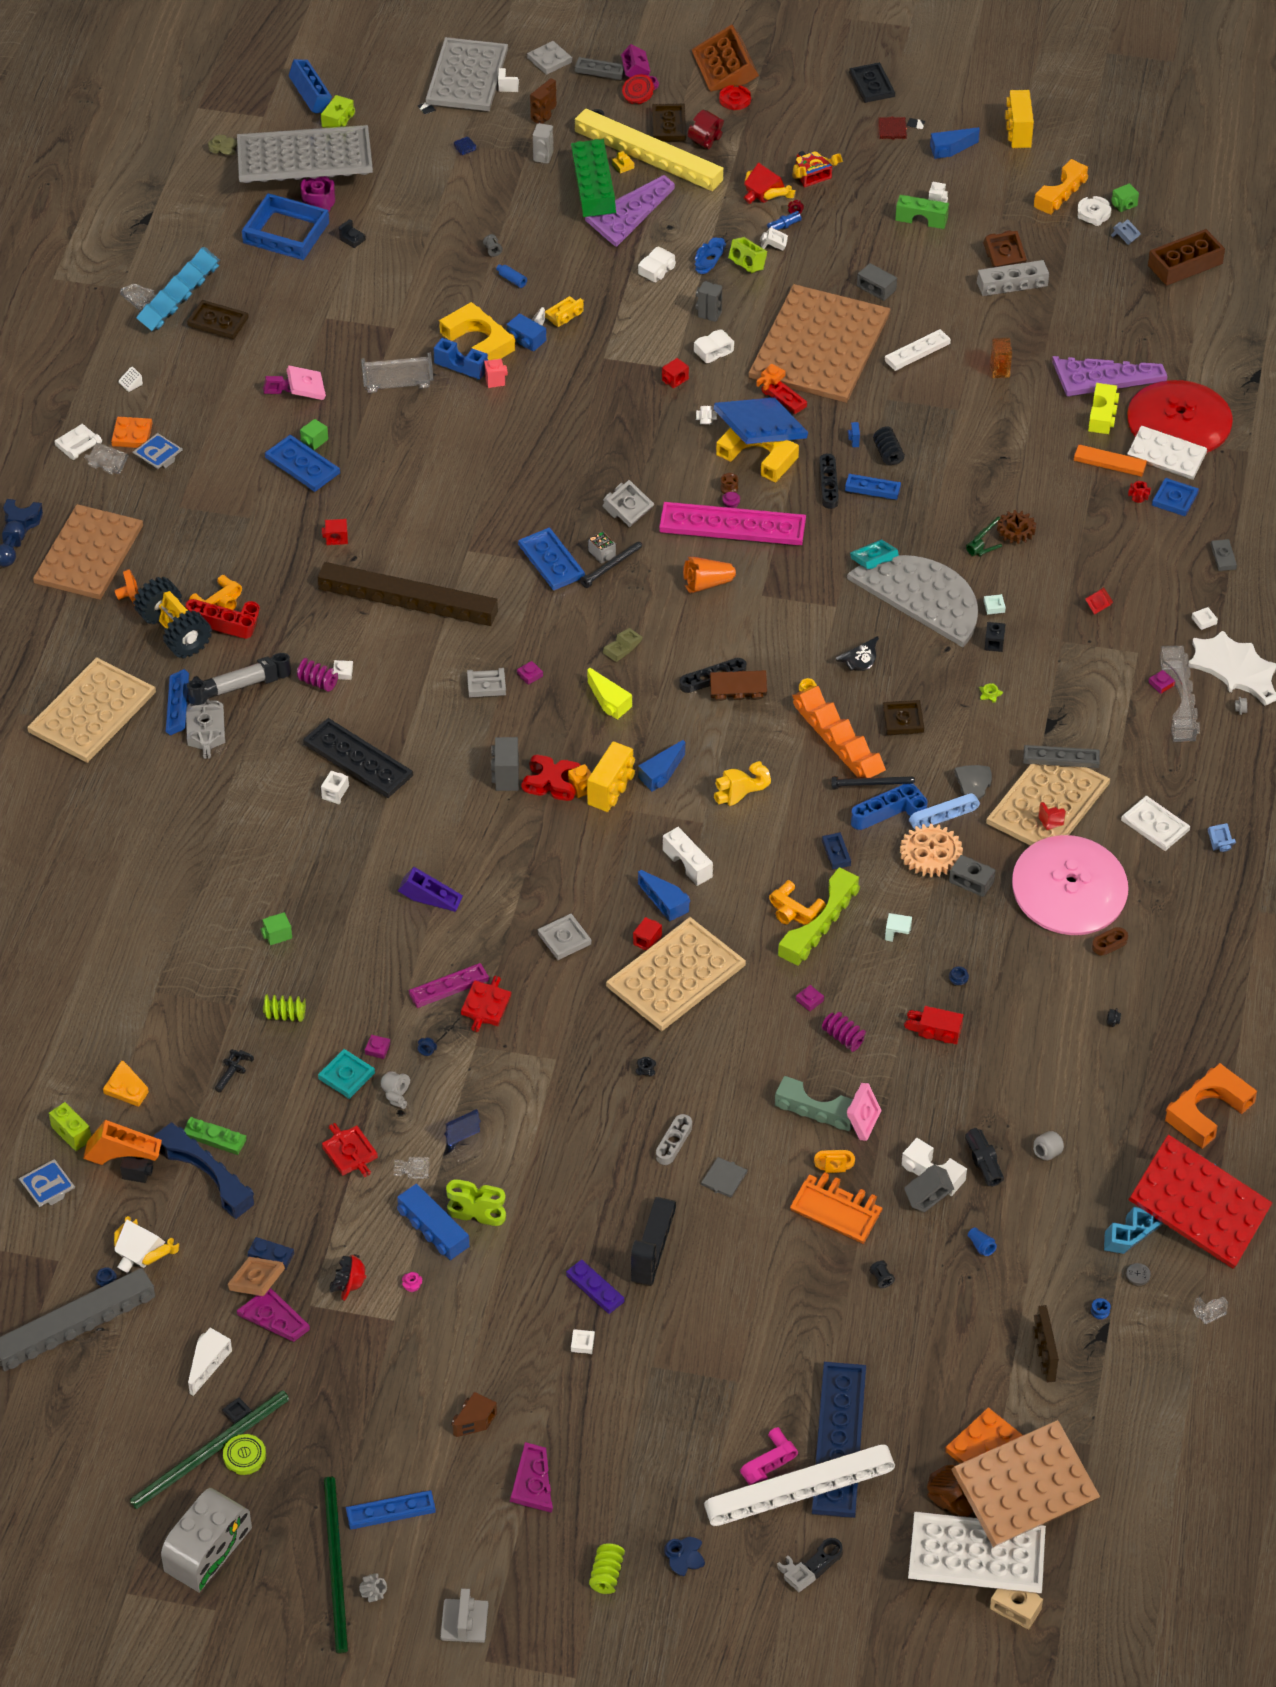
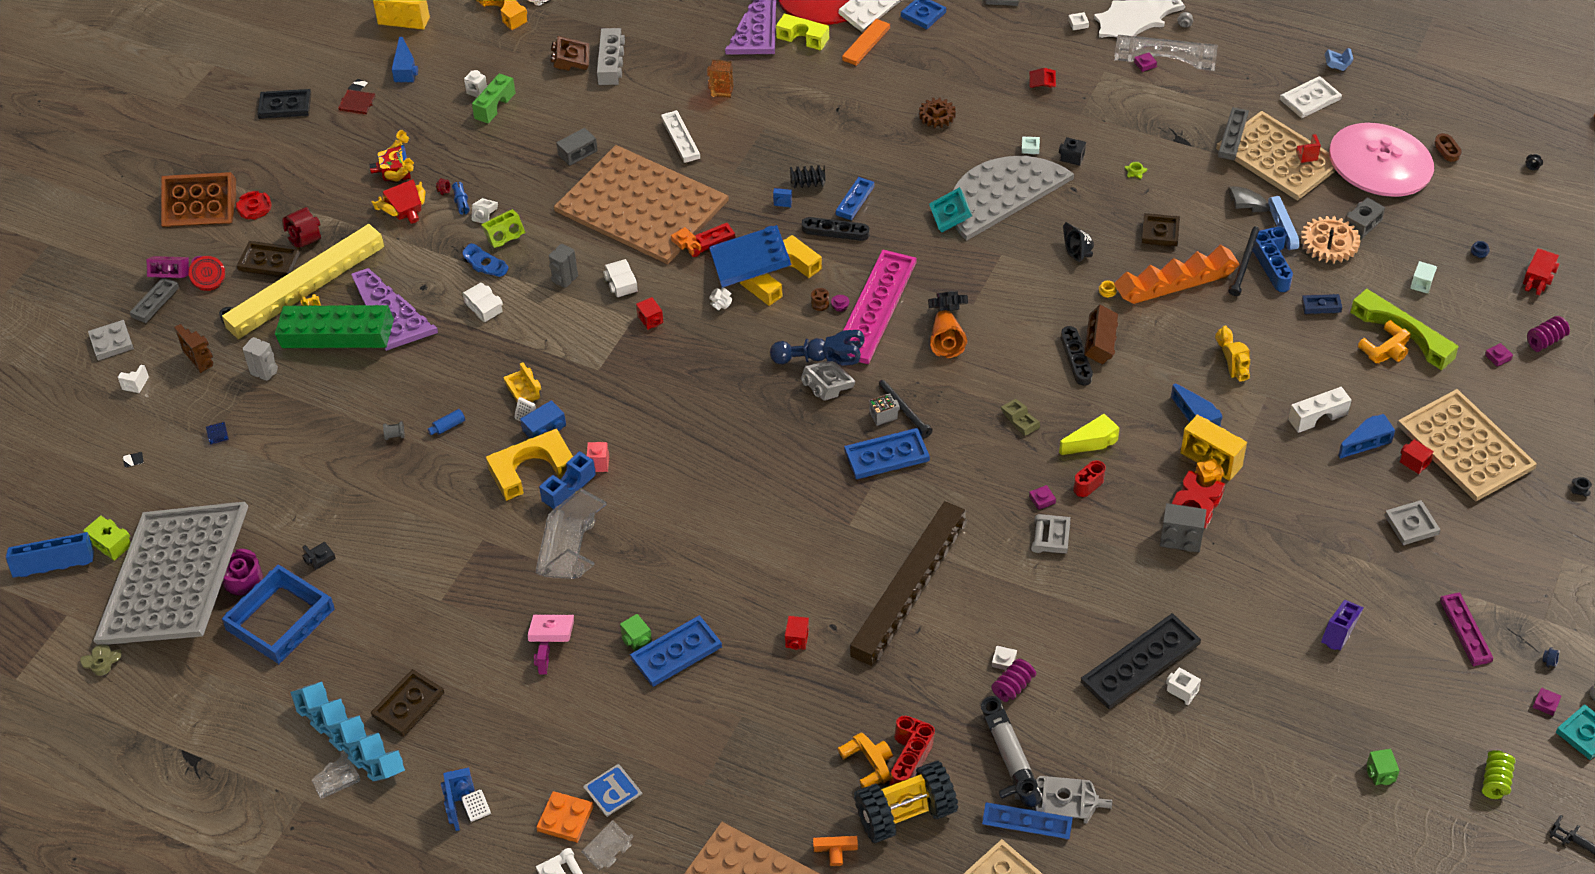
camera: 75 degrees left, 0 degrees up
(125, 357) = (456, 785): none -> blue bracket
(466, 74) = (101, 412): light grey plate -> none
(486, 1003) = (1494, 600): red plate -> none
(556, 699) = (1089, 478): none -> red beam
(655, 489) = (833, 349): none -> dark blue piece
(744, 567) = (948, 301): none -> black gear
(976, 545) = (952, 142): dark green plant -> none
(1139, 491) = (915, 29): red gear -> none

